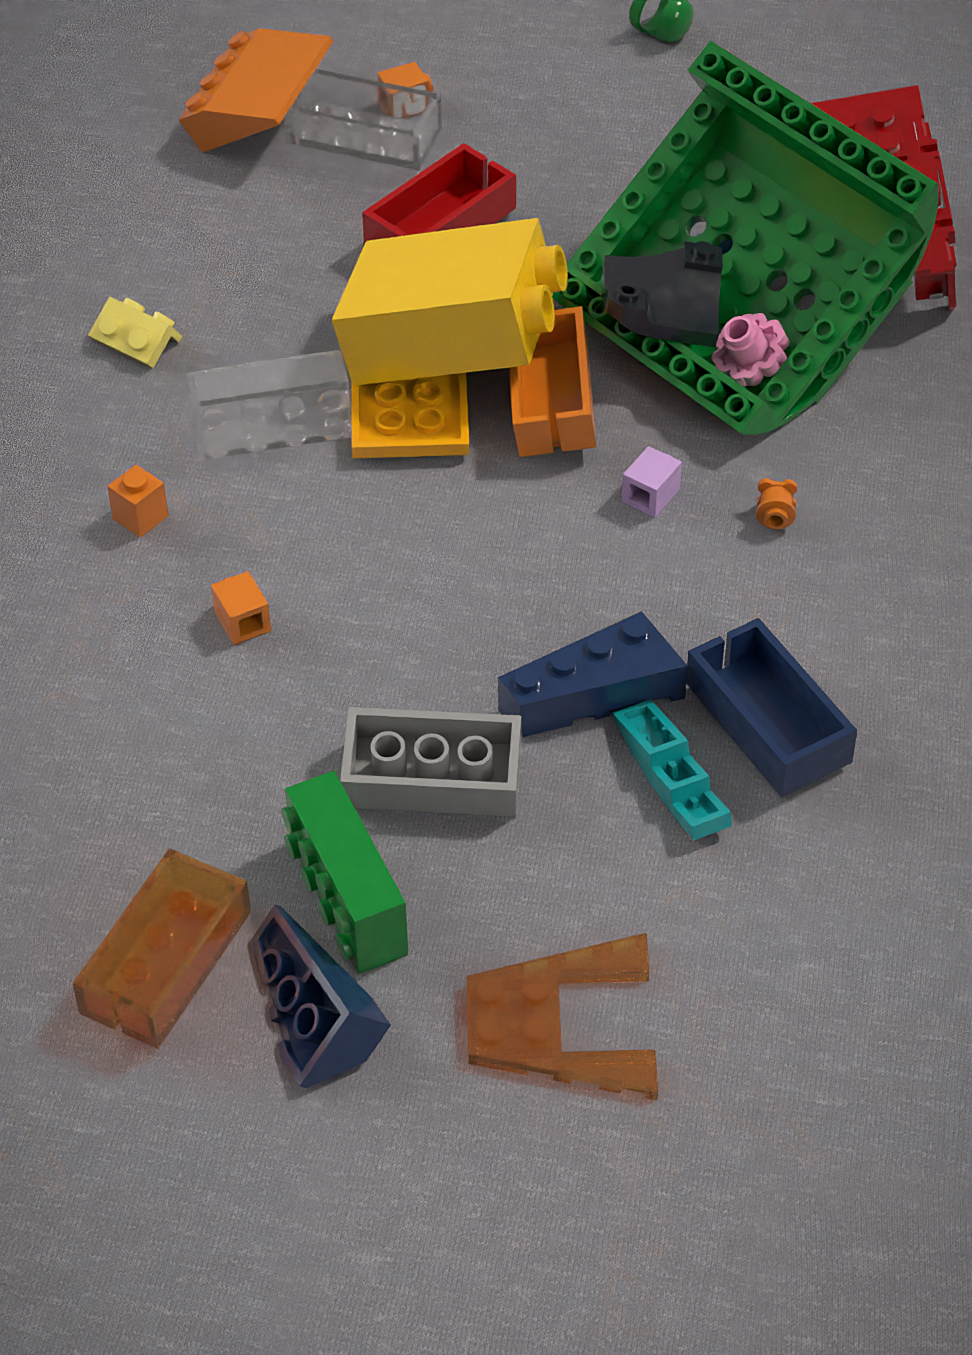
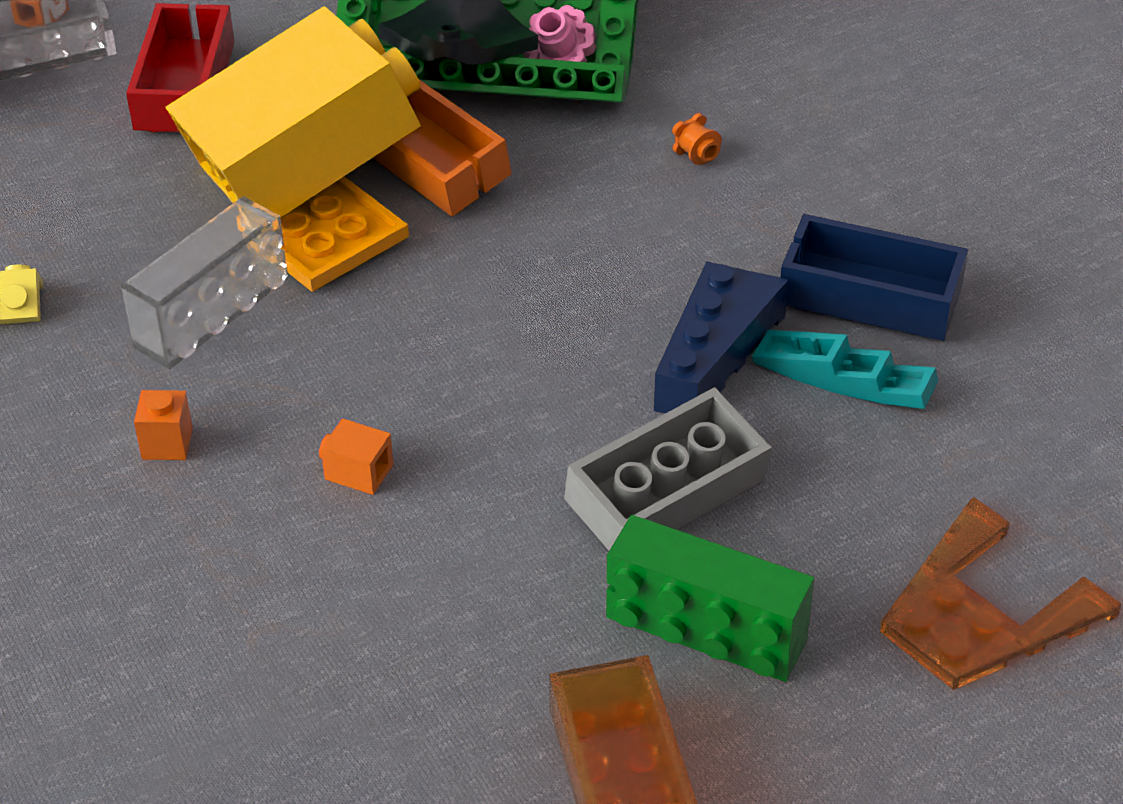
camera: 40 degrees left, 5 degrees down
(320, 1008) = (801, 728): dark blue wedge -> none
(651, 481) = (585, 175): lavender brick -> none

